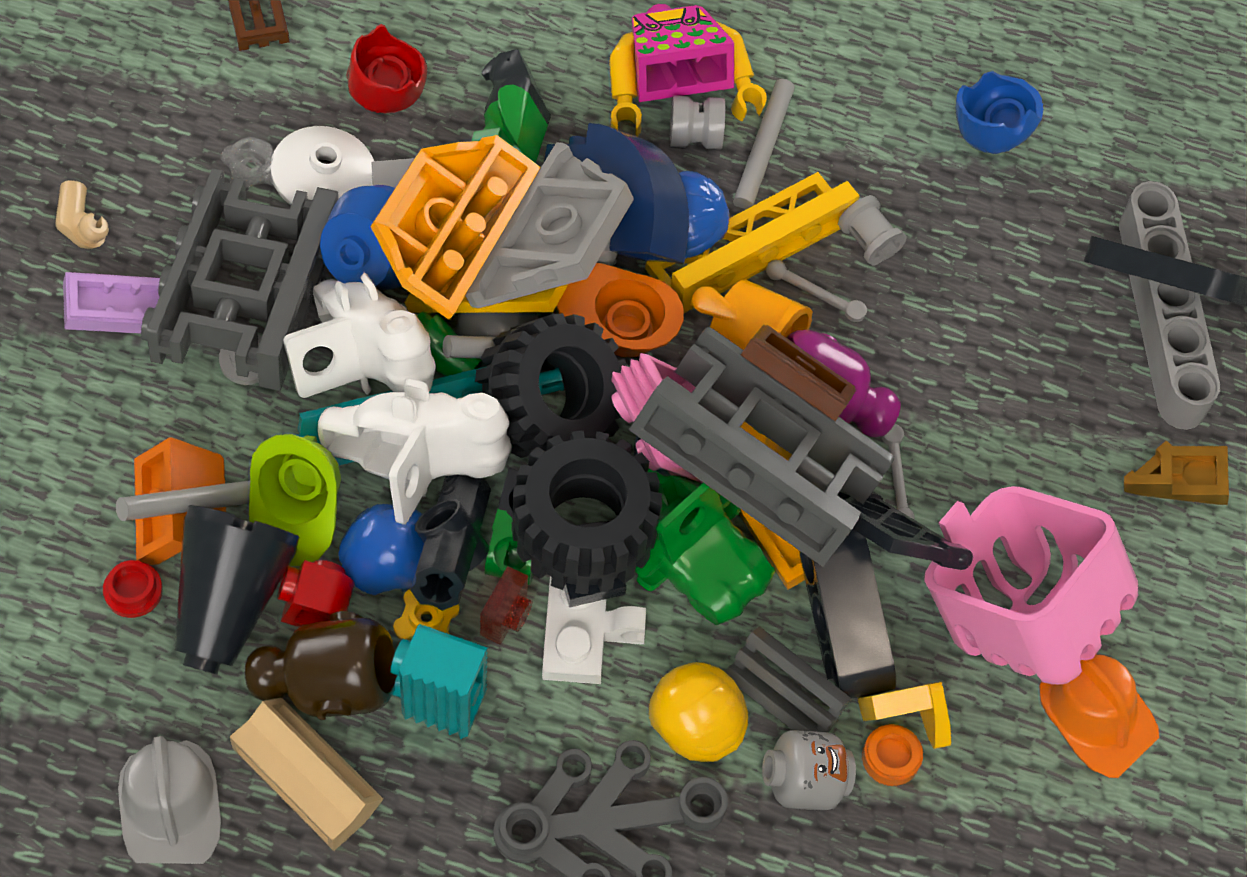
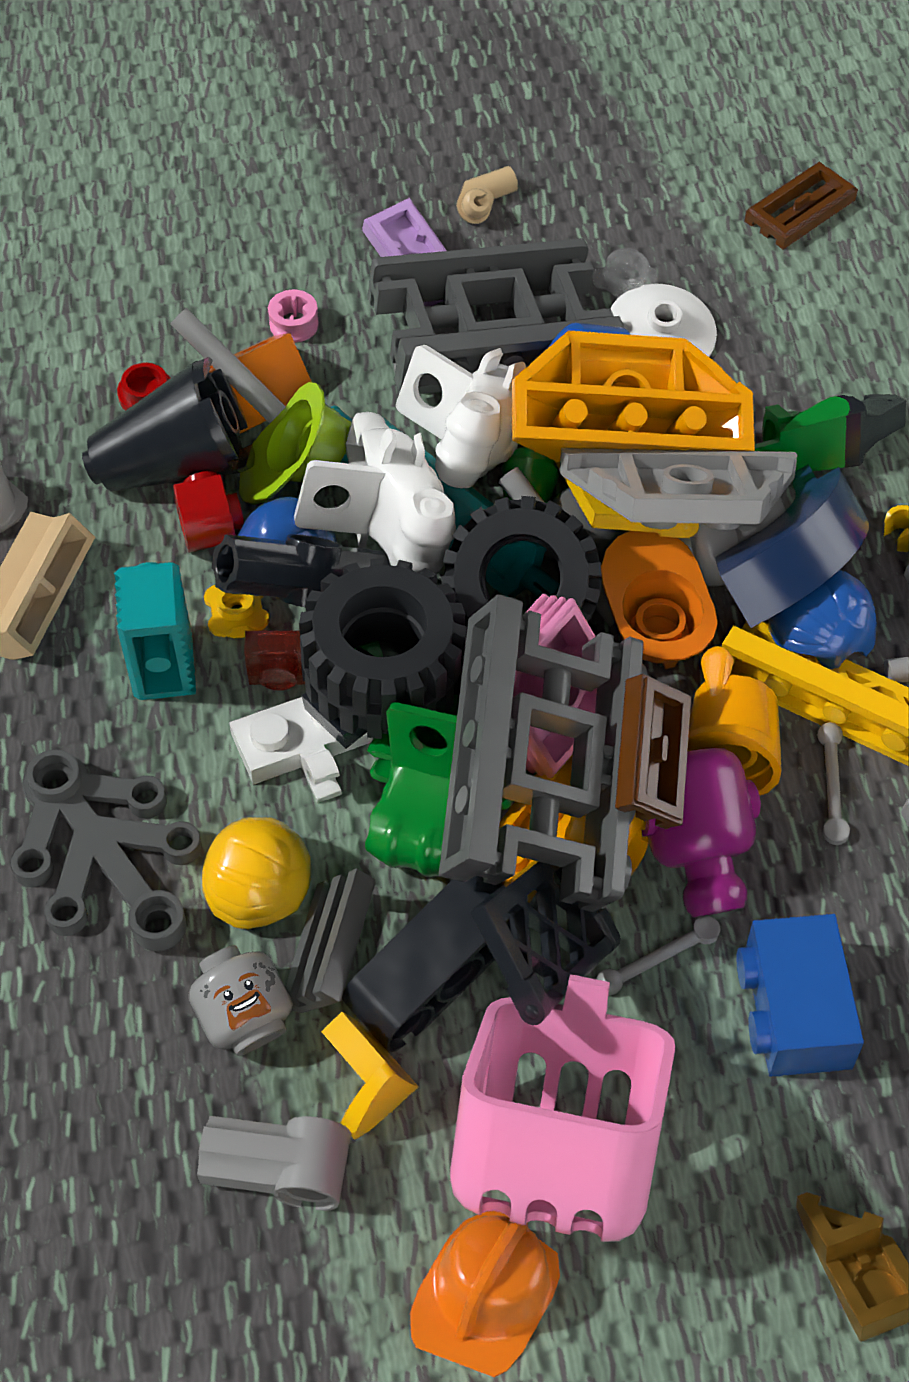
camera: 70 degrees right, 5 degrees down
(134, 421) = (293, 302): none -> bright pink bush
(327, 667) = (125, 532): dark brown piece -> none
(385, 72) = (800, 319): red hair -> none
(892, 755) = (312, 1083): orange tile -> none
(952, 796) = (290, 1161): none -> light grey piece
(984, 400) = (800, 995): none -> blue brick

